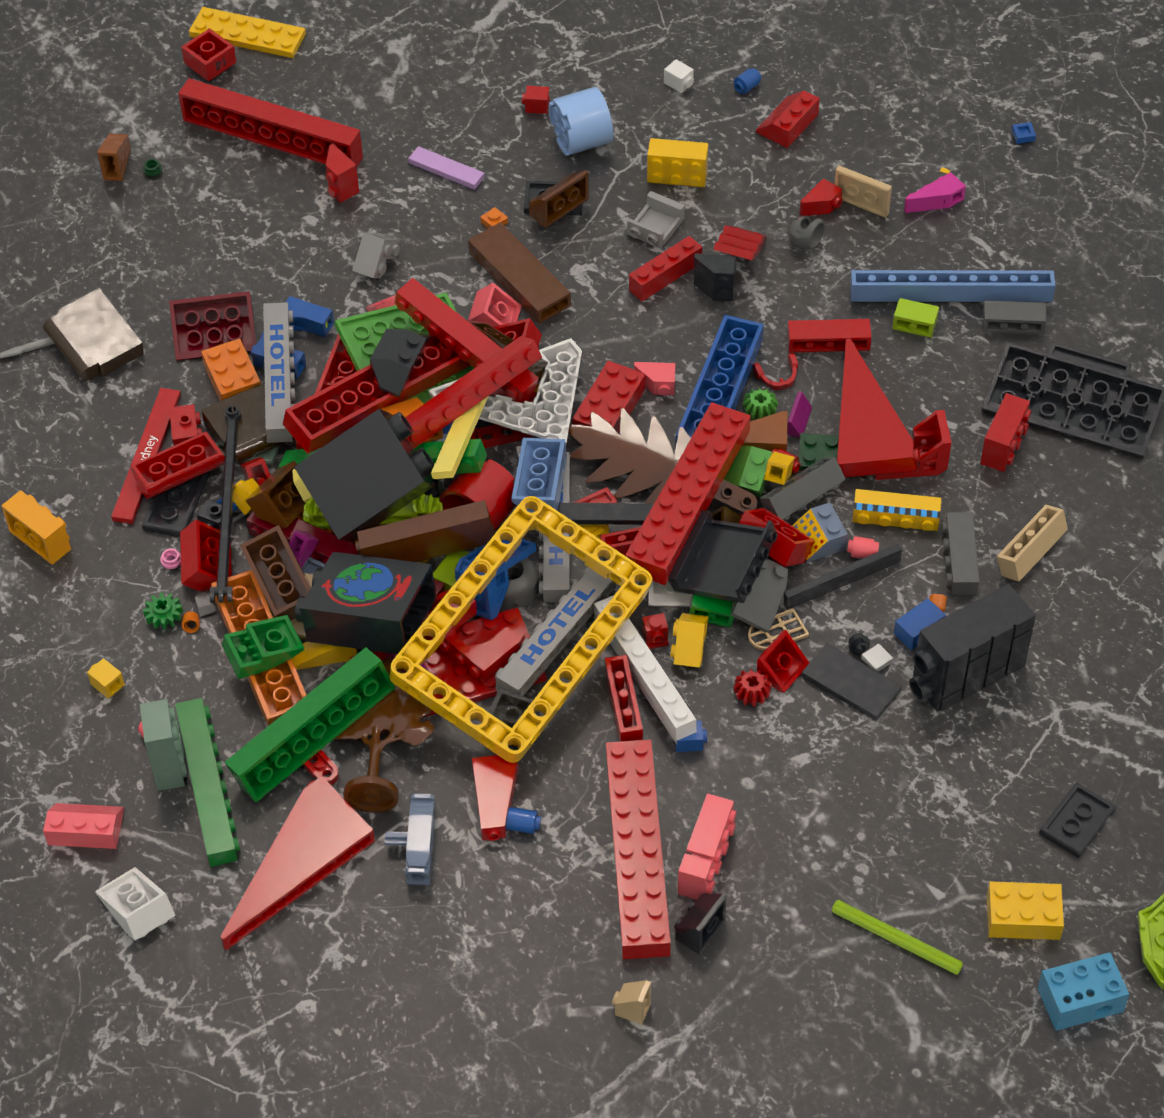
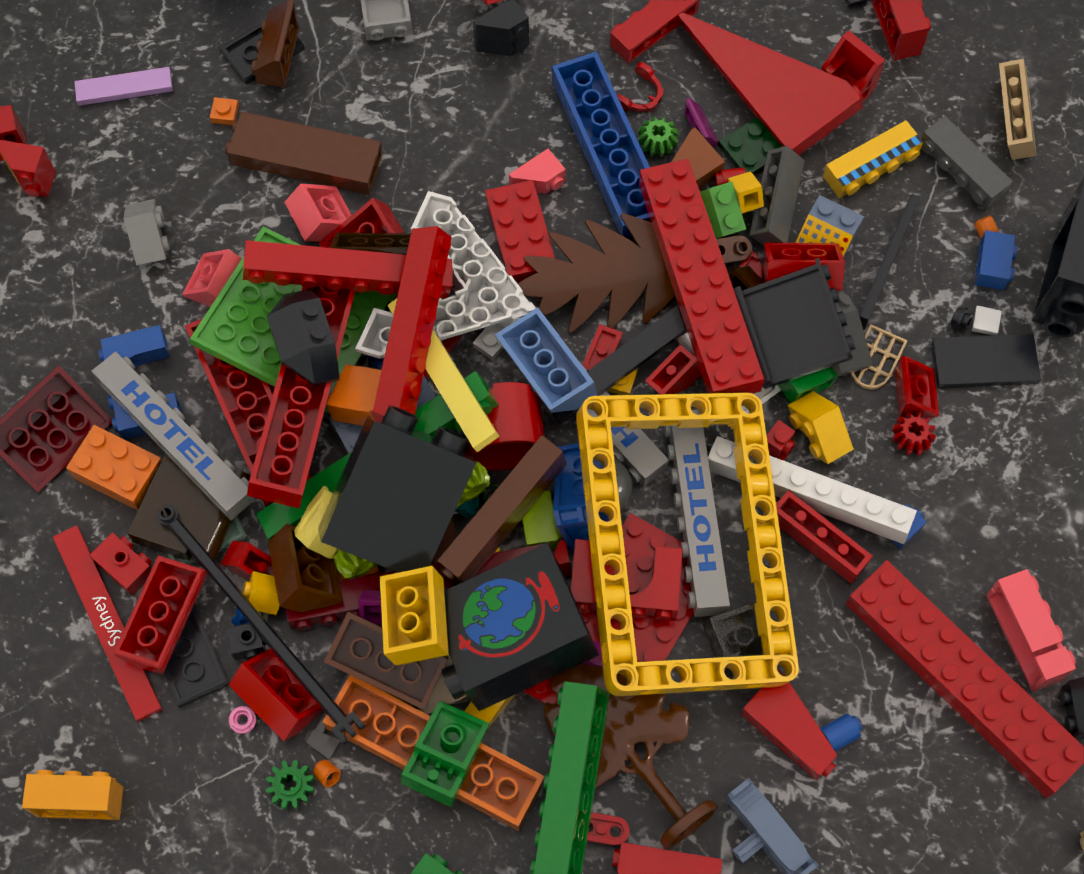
camera: 40 degrees left, 15 degrees up
(311, 548) = (413, 615): none -> yellow brick
(664, 268) = (443, 53): red brick -> none
(862, 547) = (879, 219): coral brick -> none

